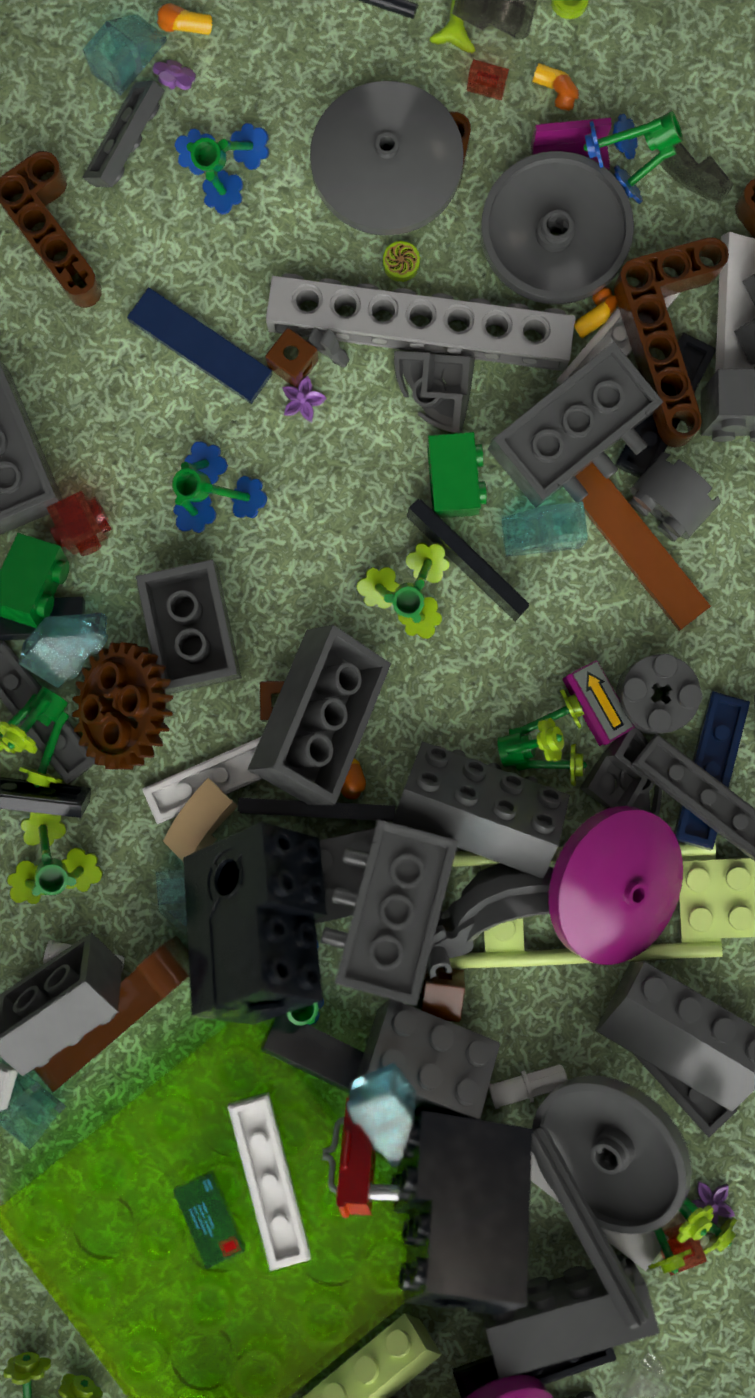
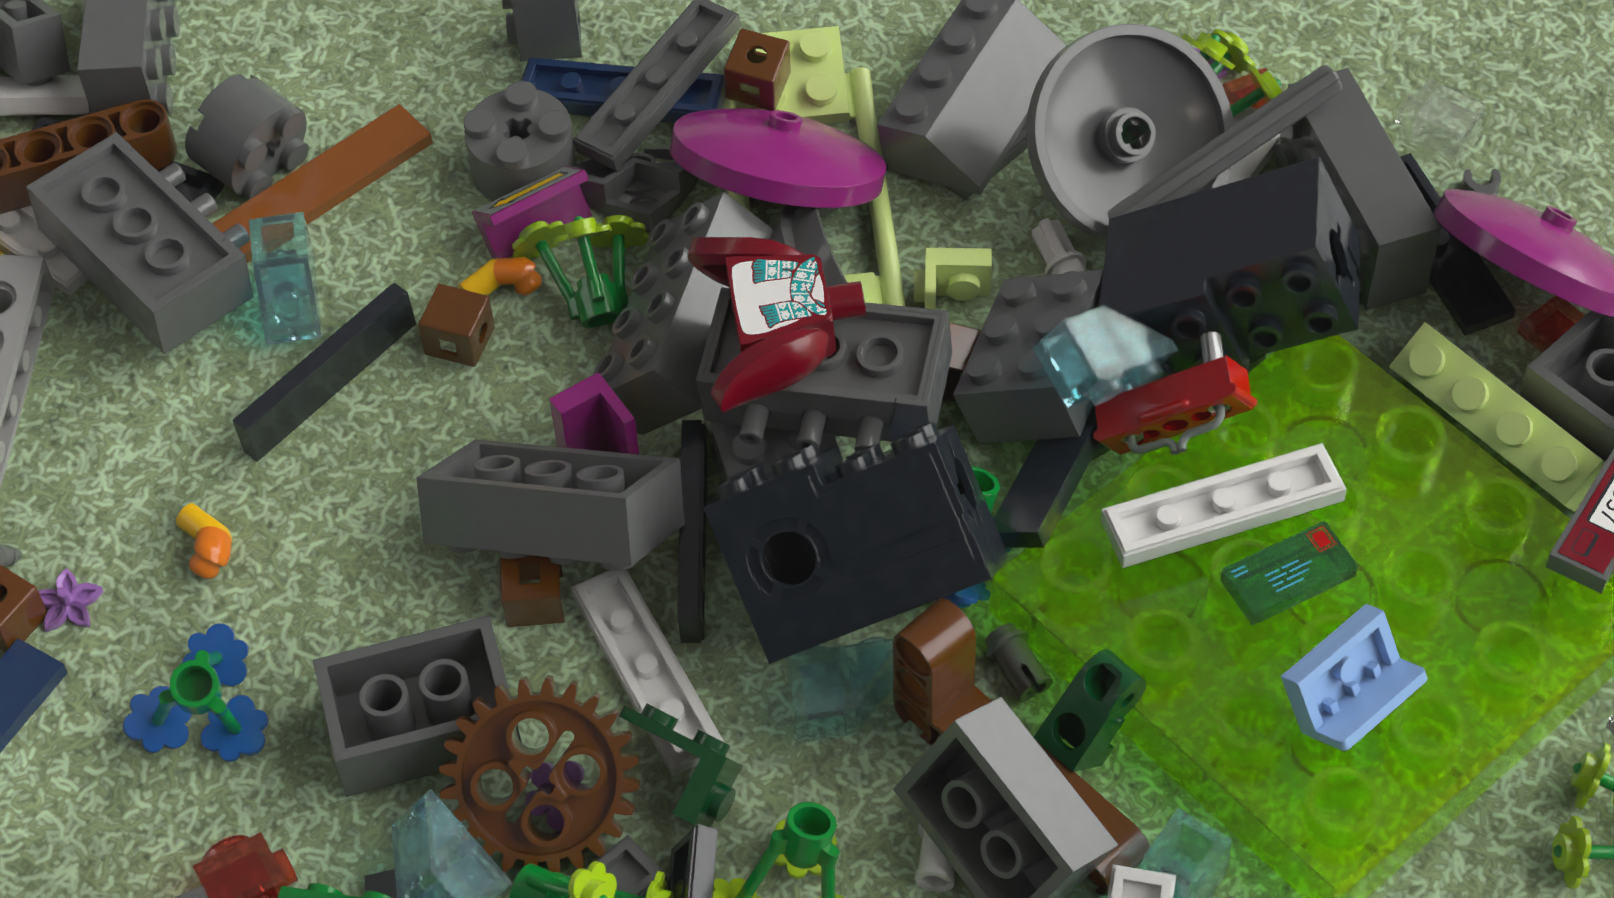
camera: 90 degrees left, 30 degrees down
(113, 1251) = (1351, 680): none -> light blue bracket
(137, 1073) = (1091, 712): none -> dark green leg
(140, 804) = (710, 786): none -> dark green bracket
(199, 819) = (719, 677): tan slope -> none
(199, 1026) = (1016, 659): none -> dark grey pin
(339, 490) = (211, 540): none -> orange arm
(398, 743) = (593, 418): none -> magenta panel
(408, 599) = (391, 418): lime plant -> none
(413, 883) = (778, 312): none -> dark red torso
(443, 404) = (63, 427): dark grey brick -> none
(454, 475) = (196, 392): green piece -> none
(501, 650) = (456, 318): none -> reddish brown piece
(520, 1009) = (953, 273): none -> yellowish green bracket
(549, 681) = (504, 271): none -> orange arm
(694, 874) = (757, 69): none -> reddish brown piece

